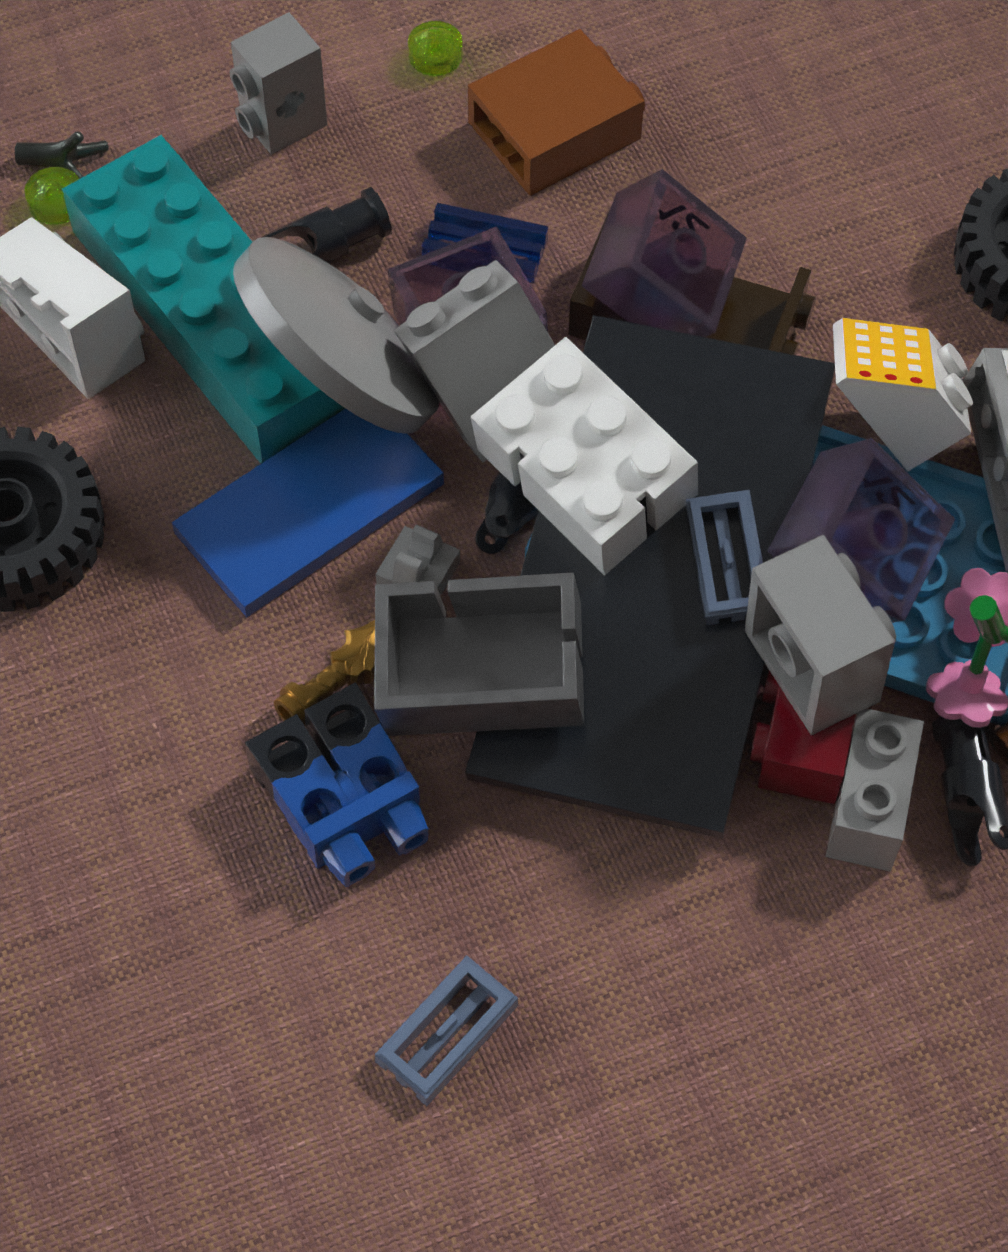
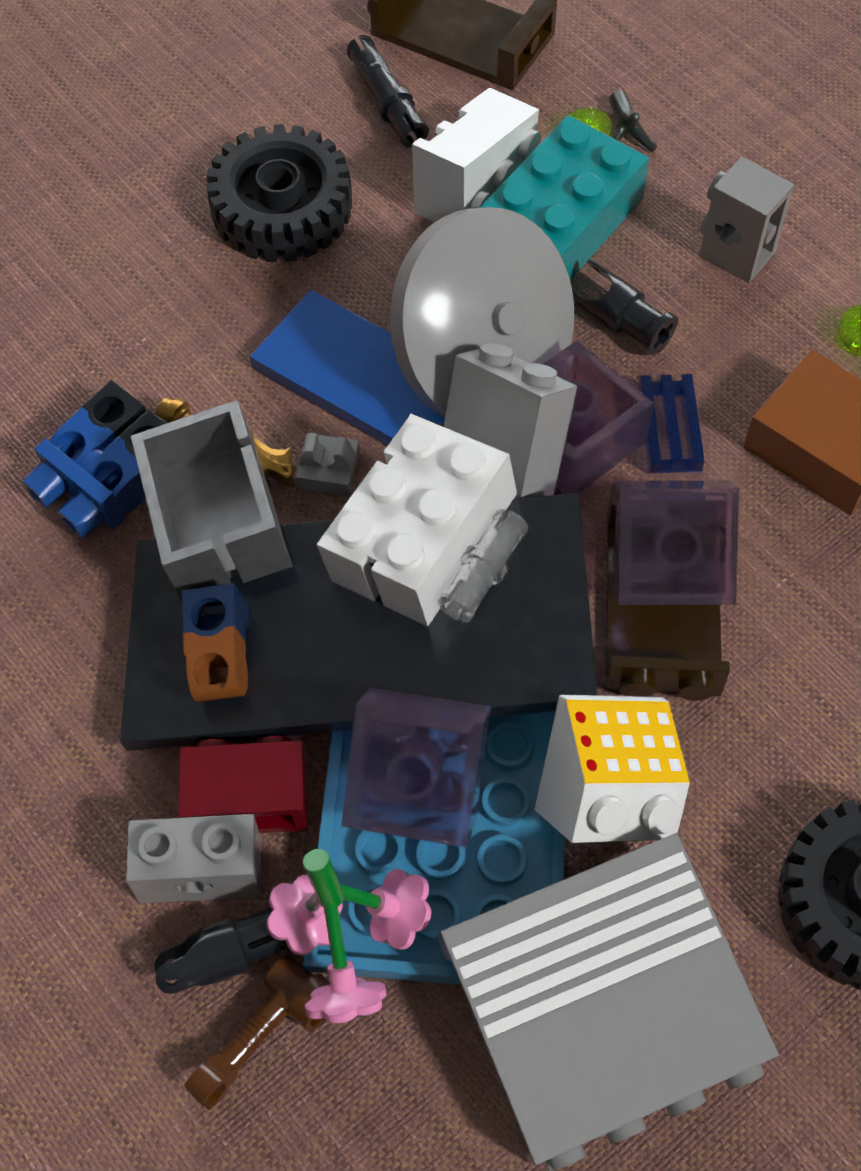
camera: 75 degrees right, 0 degrees up
(658, 692) = (215, 642): none -> leg
(666, 412) = (483, 565): none -> clear pin
(735, 605) = (373, 670): sand blue tile -> none
(819, 633) = (276, 738): light grey brick -> none

